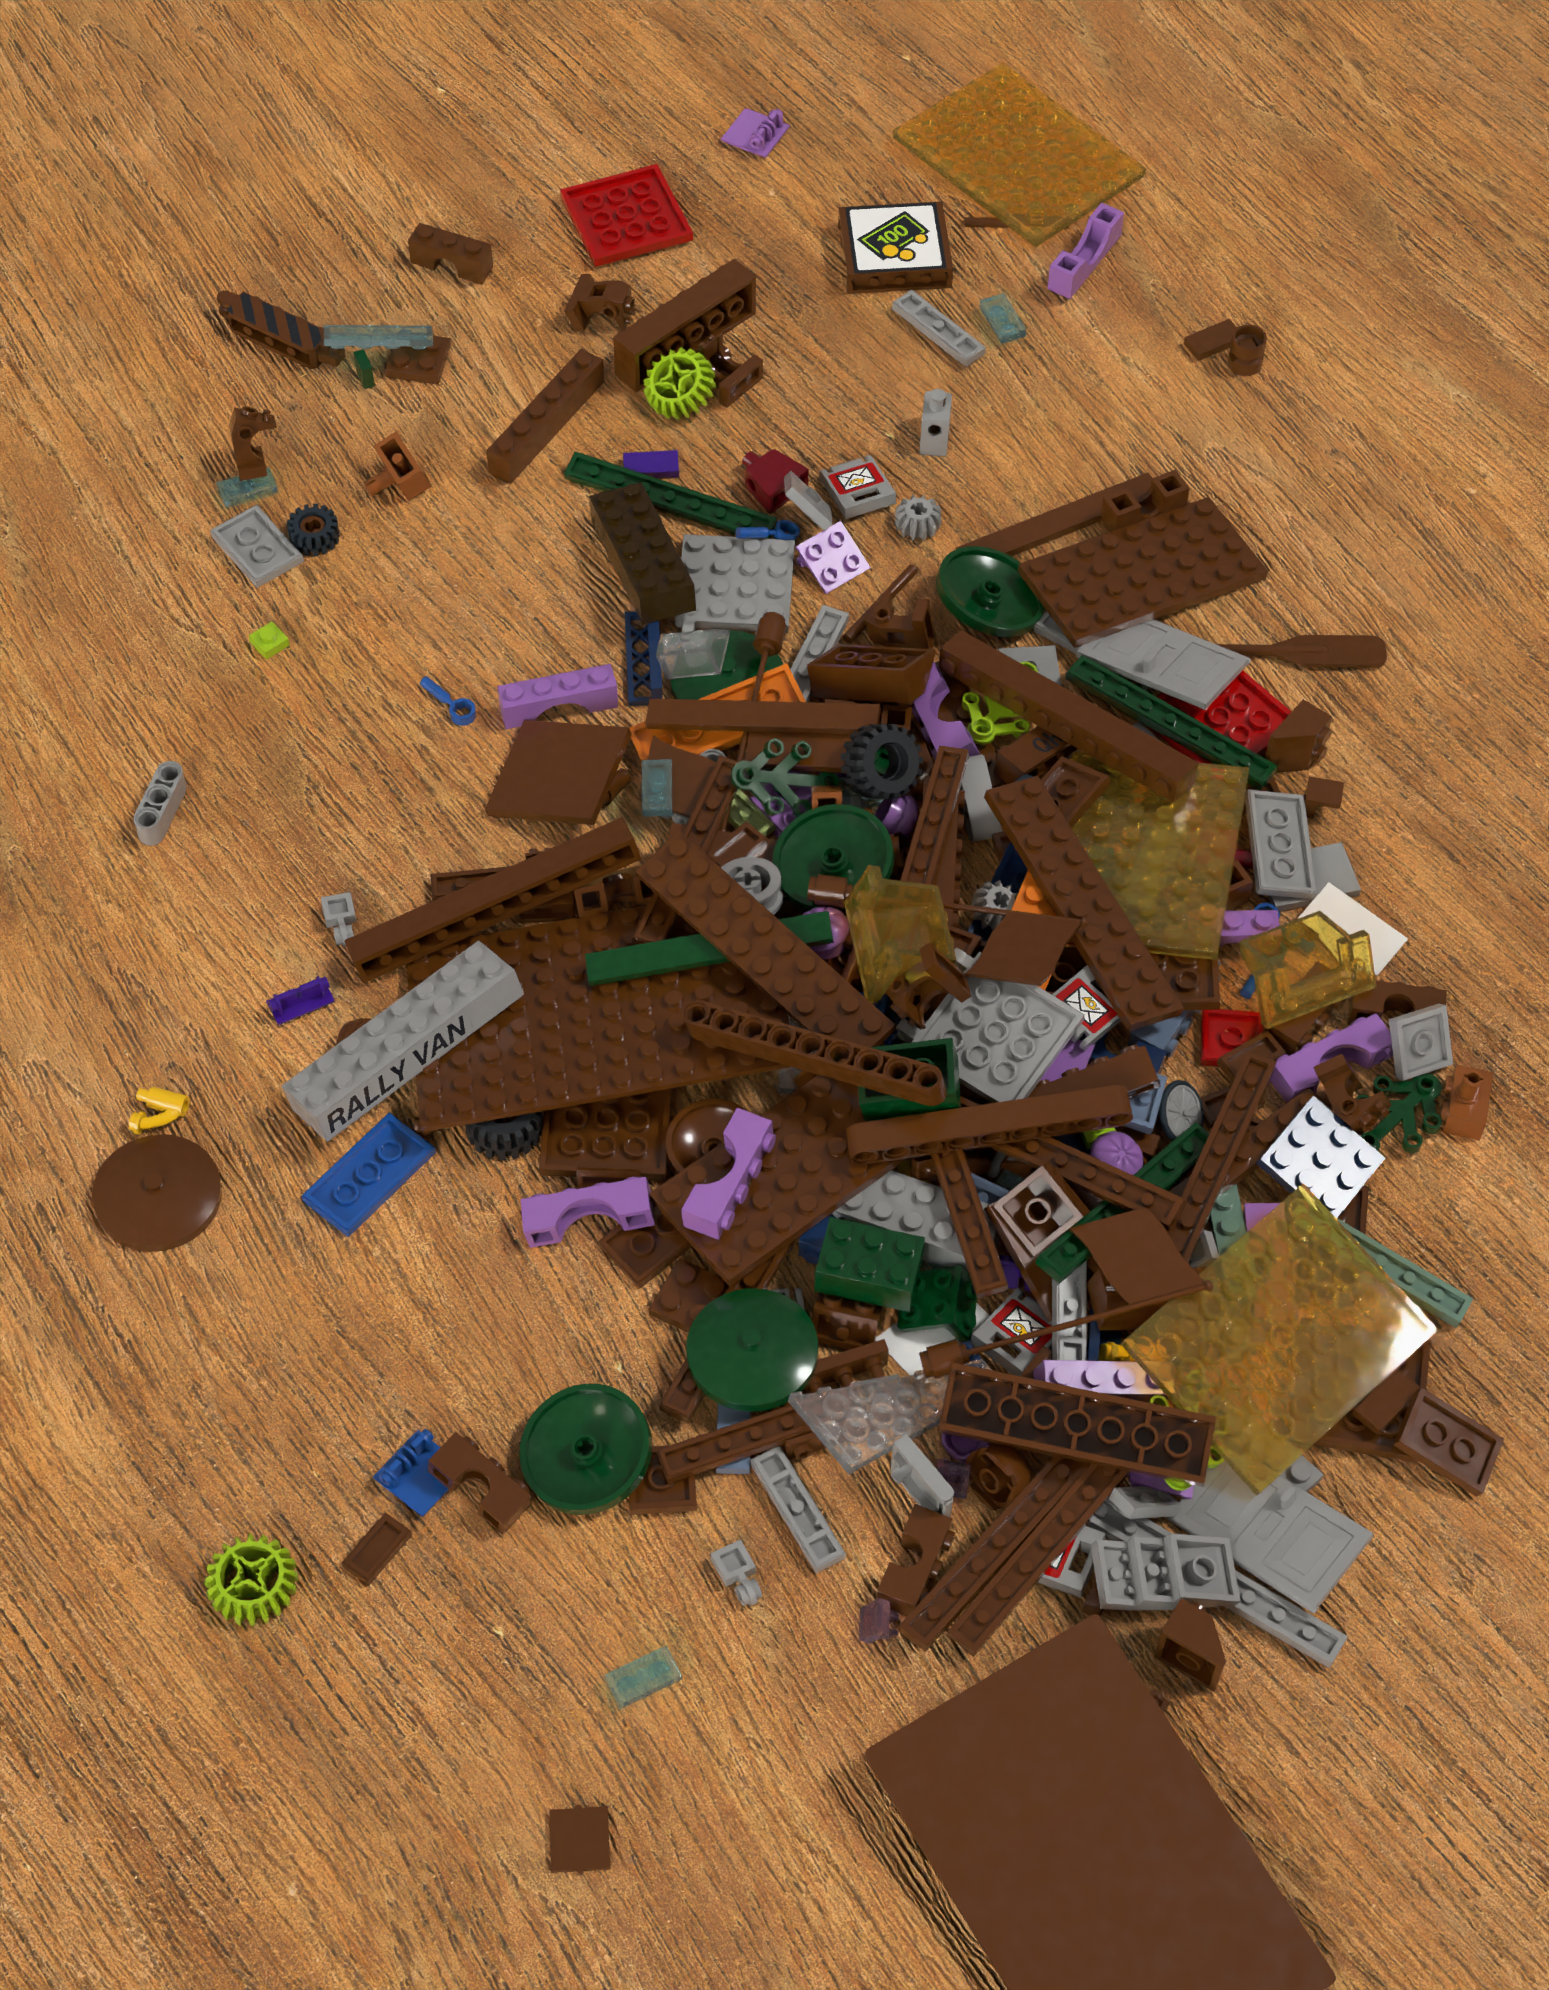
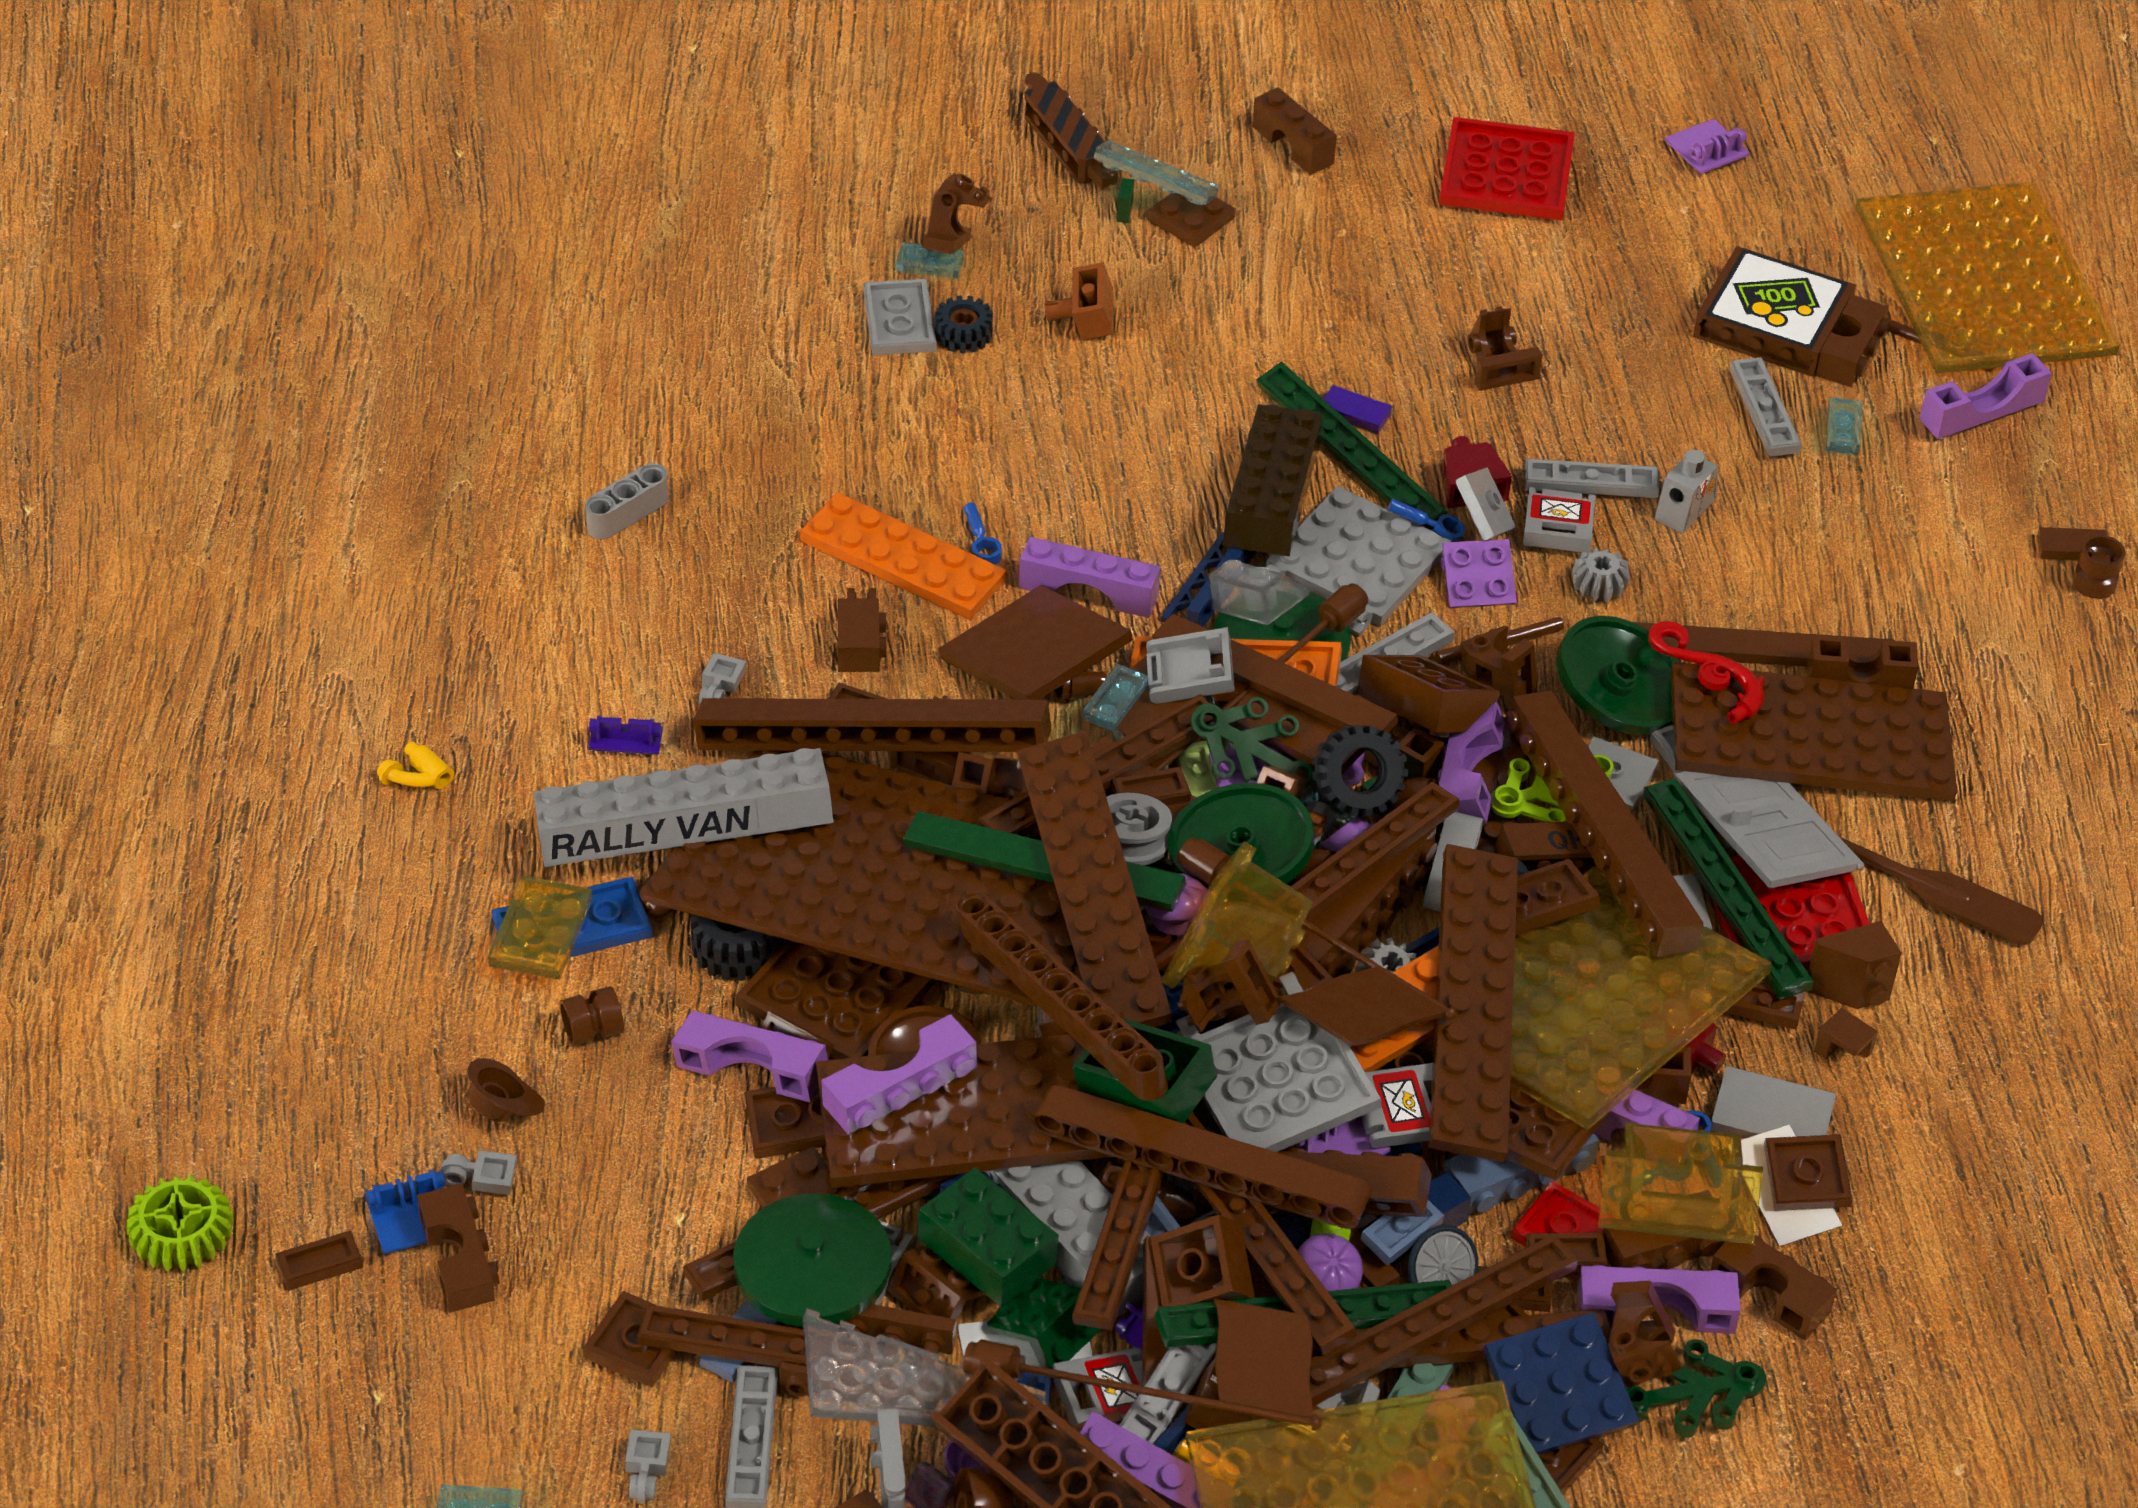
camera: 30 degrees right, 10 degrees down
(157, 1192) = (361, 843): reddish brown dish -> none
(269, 640) = (845, 405): lime plate -> none
(355, 1191) = (540, 927): none -> clear yellow plate
(401, 745) = (903, 555): none -> orange plate
(418, 825) = (859, 633): none -> reddish brown hinge
(423, 1341) = (500, 1092): none -> reddish brown piece
(448, 1237) = (591, 1016): none -> reddish brown wheel
(456, 1406) = (490, 1173): none -> light grey plate
(545, 416) = (1276, 317): reddish brown brick -> none
(585, 1449) = (580, 1268): dark green dish -> none
(609, 297) = (1419, 231): reddish brown tile -> none
(673, 378) = (1437, 342): lime gear -> none
(689, 738) = (1183, 667): none -> light grey container
(706, 308) = (1453, 290): reddish brown brick -> none
(858, 442) = (1592, 478): none -> light grey plate
(966, 247) = (1858, 335): none -> reddish brown arch
(1052, 552) = (1714, 669): none -> red plant
(1280, 844) = (1758, 1060): light grey tile -> none
(1365, 907) = (1807, 1172): none -> reddish brown tile
(1421, 1041) = (1766, 1324): light grey plate -> none
(1467, 1102) = (1780, 1414): dark orange brick -> none

